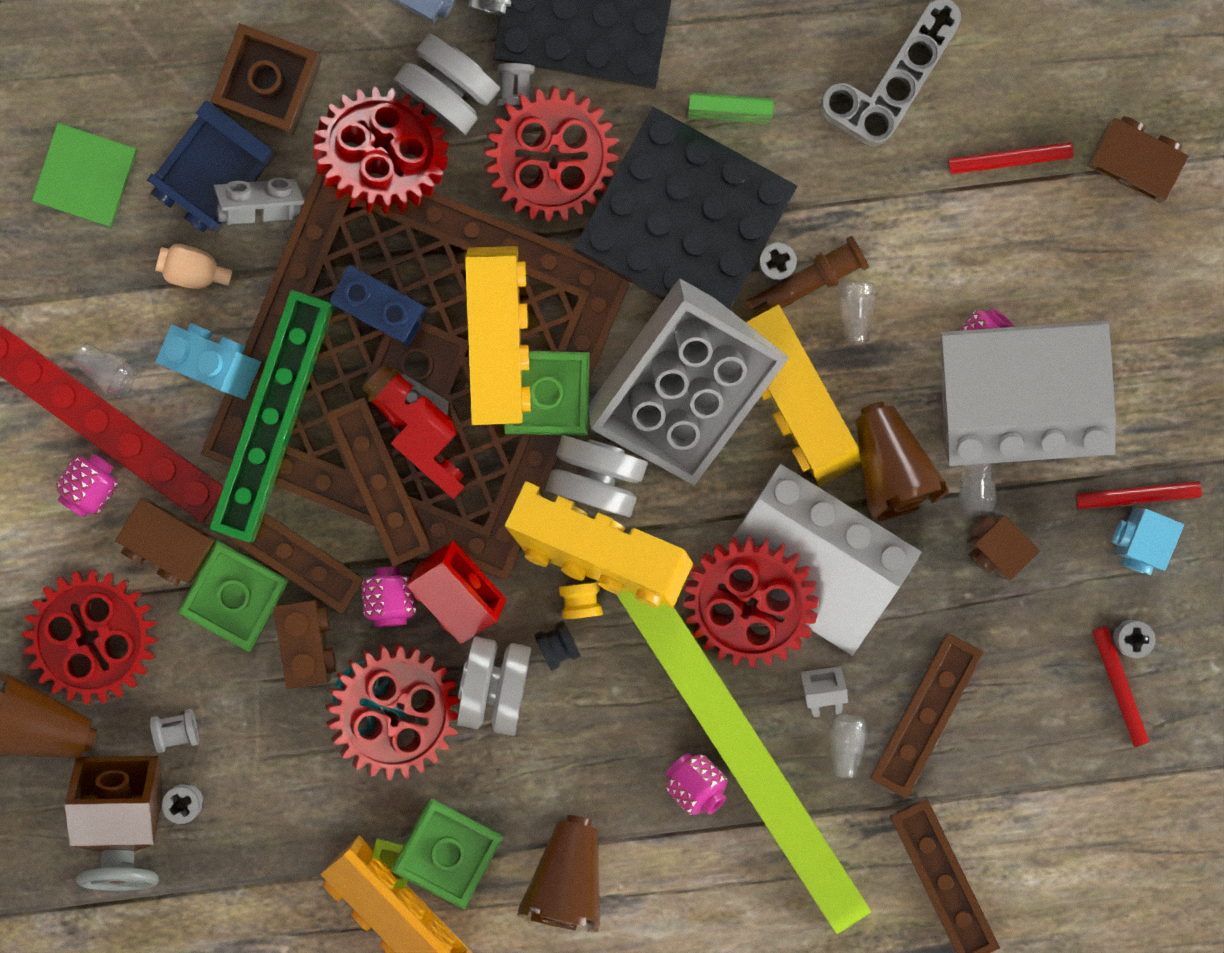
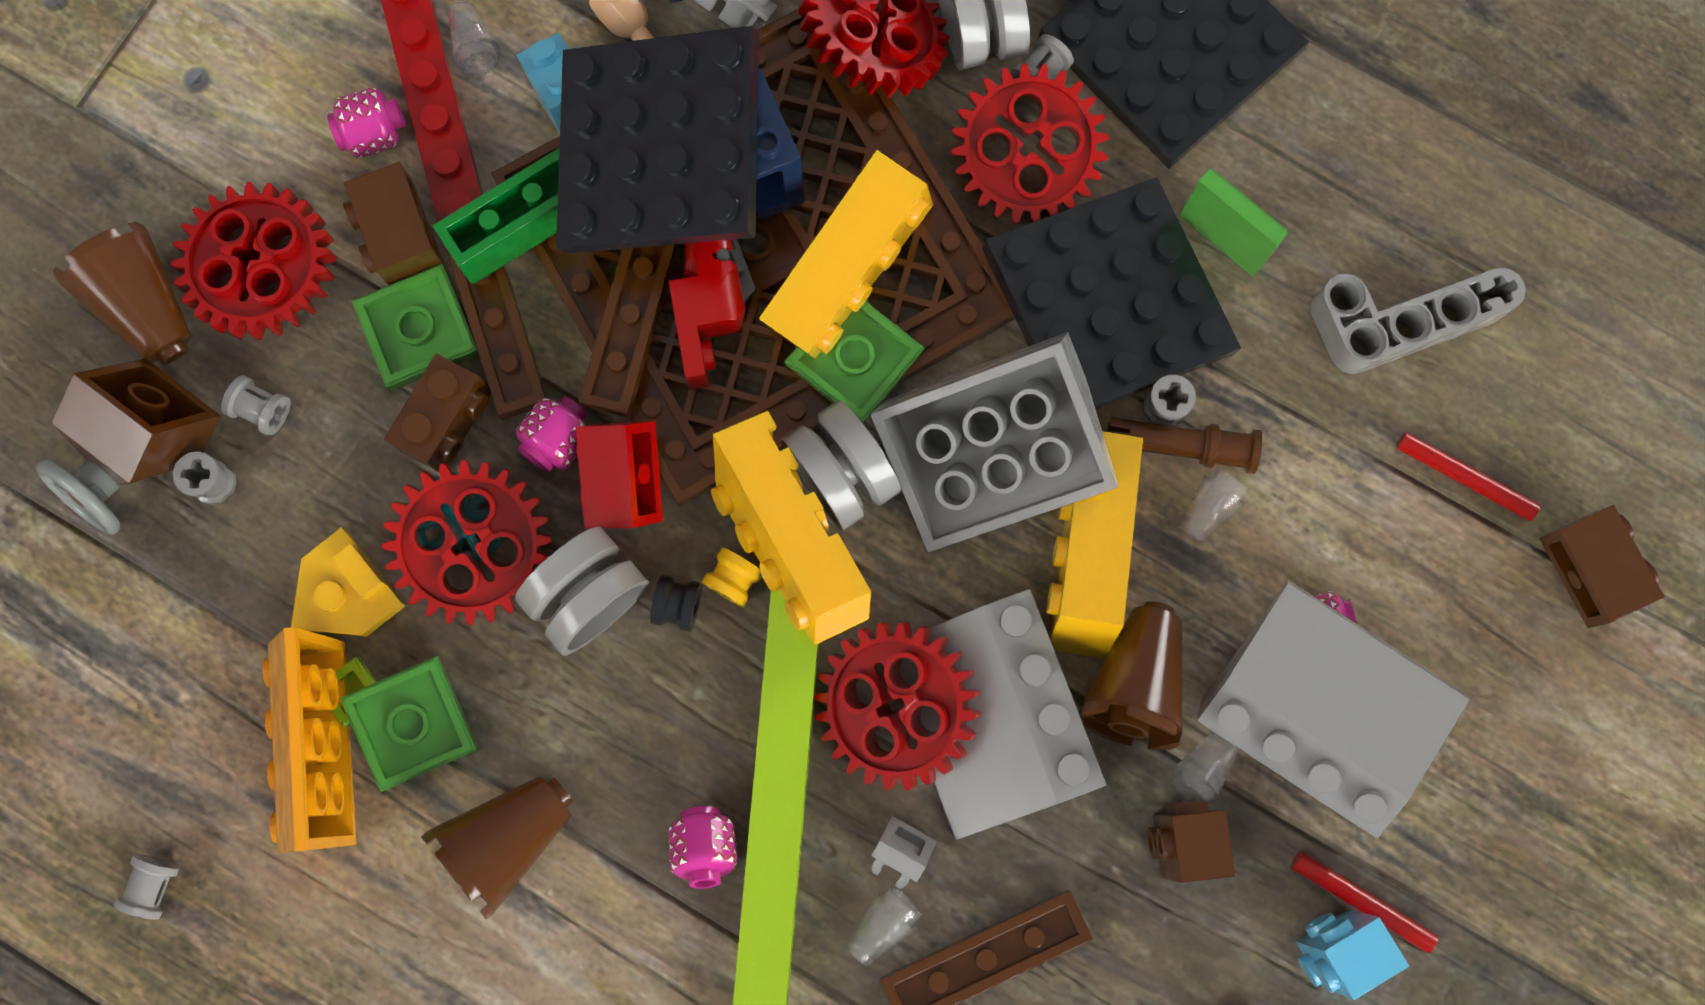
camera: 40 degrees right, 10 degrees down
(321, 365) = (659, 141): none -> black plate
(331, 804) = (342, 590): none -> yellow plate

